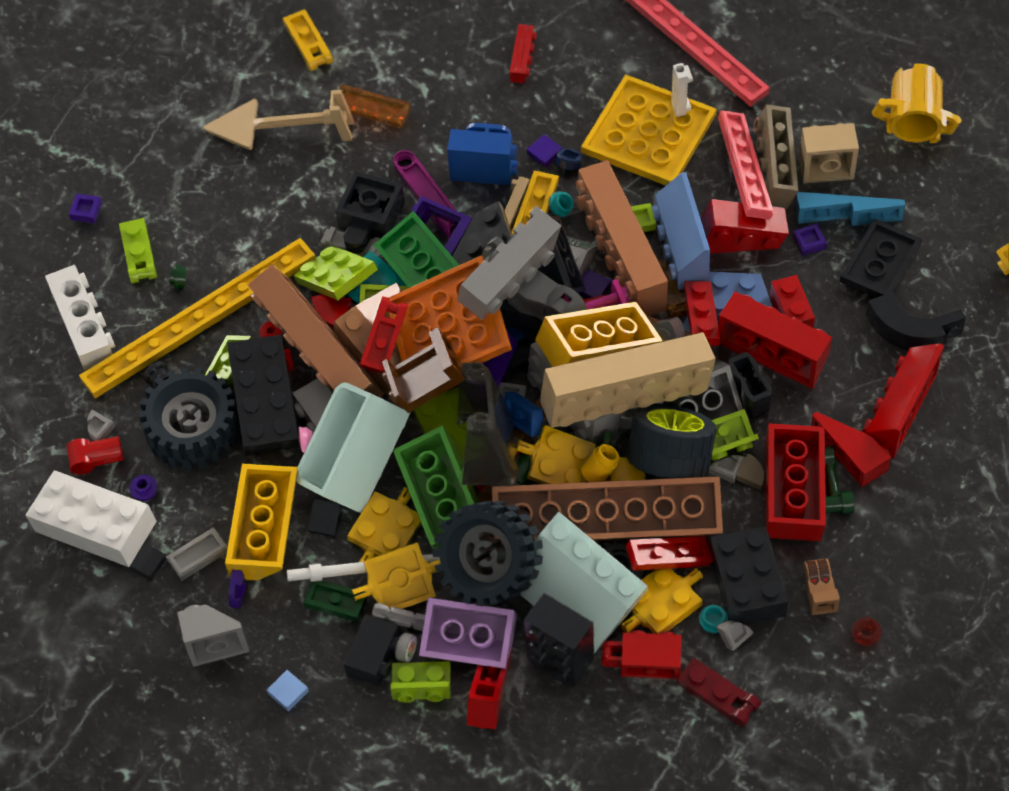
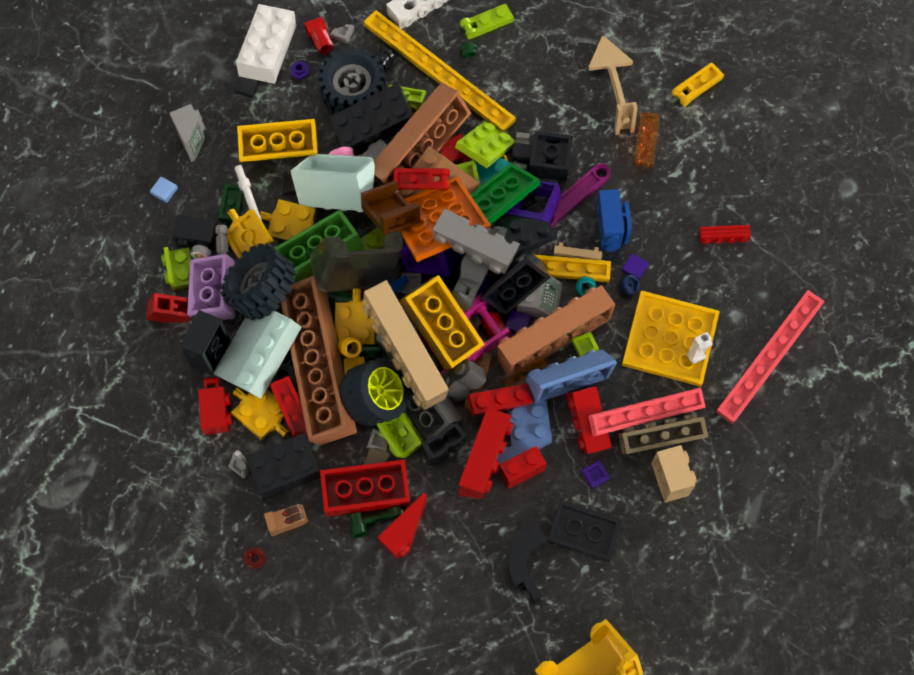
camera: 75 degrees right, 10 degrees up
(197, 554) = (255, 112): light grey tile -> none
(236, 588) = (230, 142): dark purple tile -> none
(712, 617) = (250, 446): teal plate -> none
(718, 692) = (194, 461): dark red plate -> none
(860, 210) = (627, 507): dark azure slope -> none
(904, 396) = (452, 560): red slope -> none
(916, 106) = (739, 539): yellow container -> none

